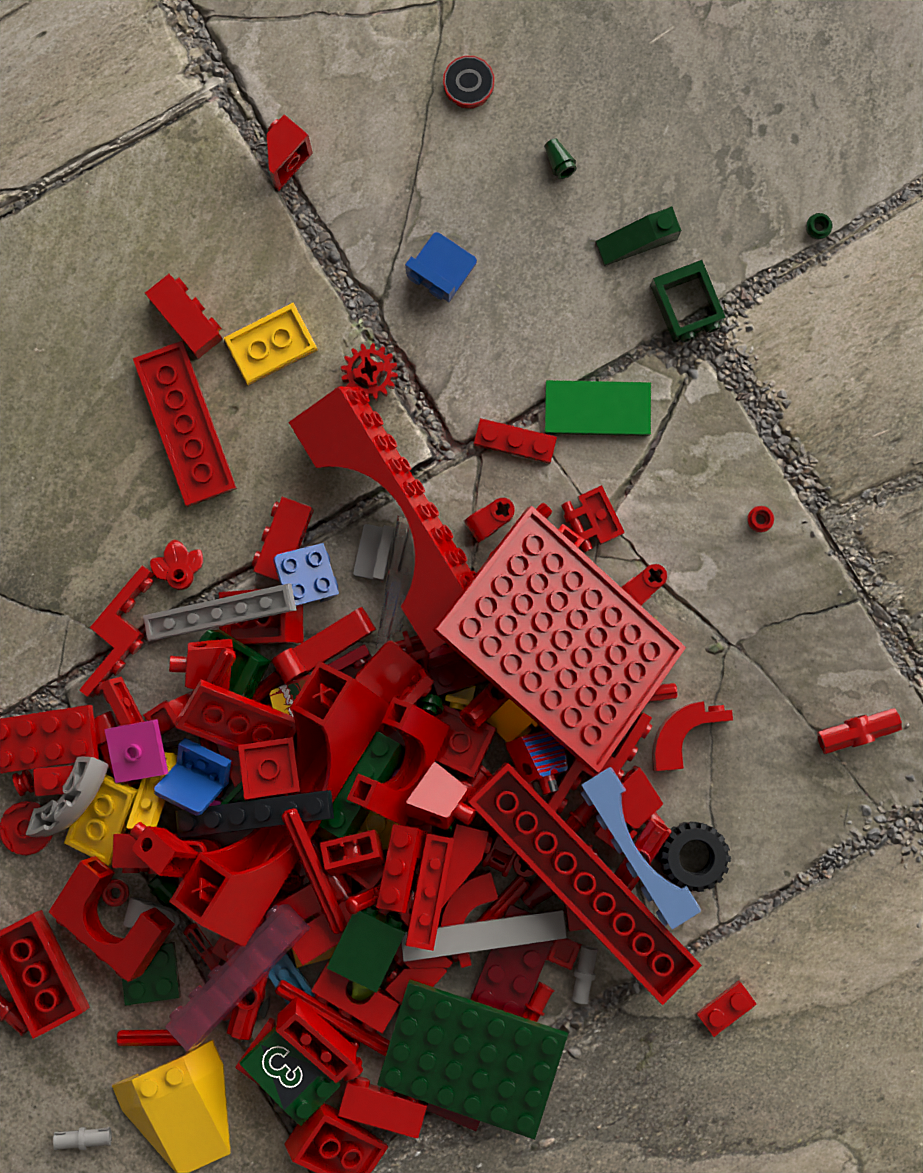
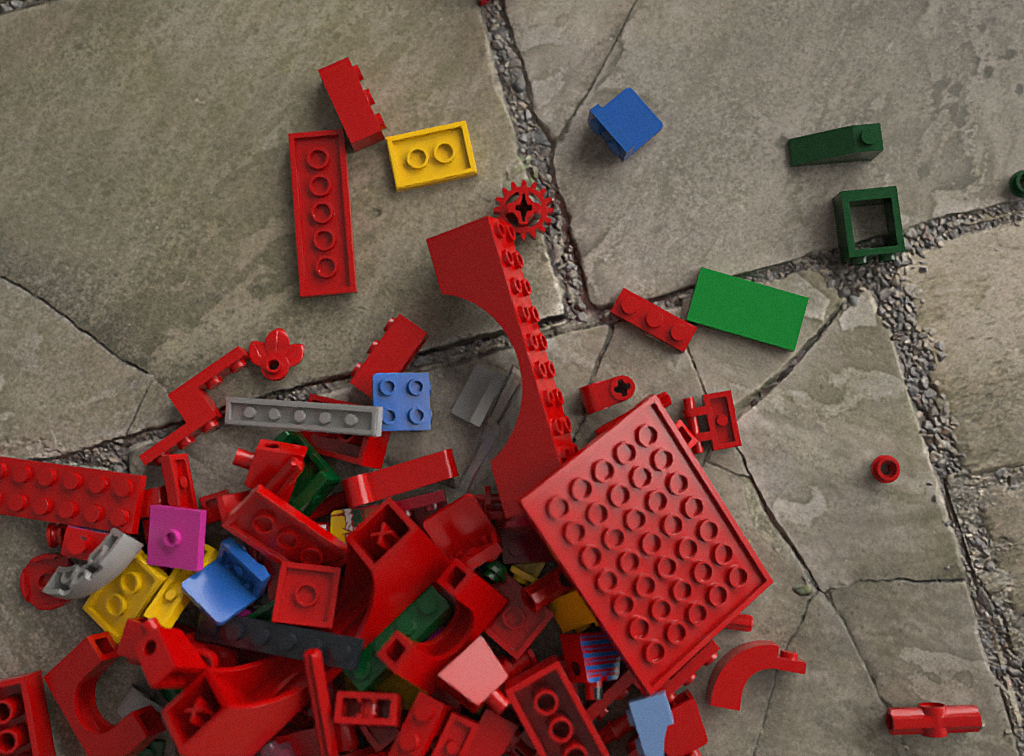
camera: 20 degrees right, 0 degrees up
(107, 895) = (114, 680): red plate -> none
(560, 159) = (775, 48): dark green cone -> none
(641, 588) = (743, 506): red piece -> none

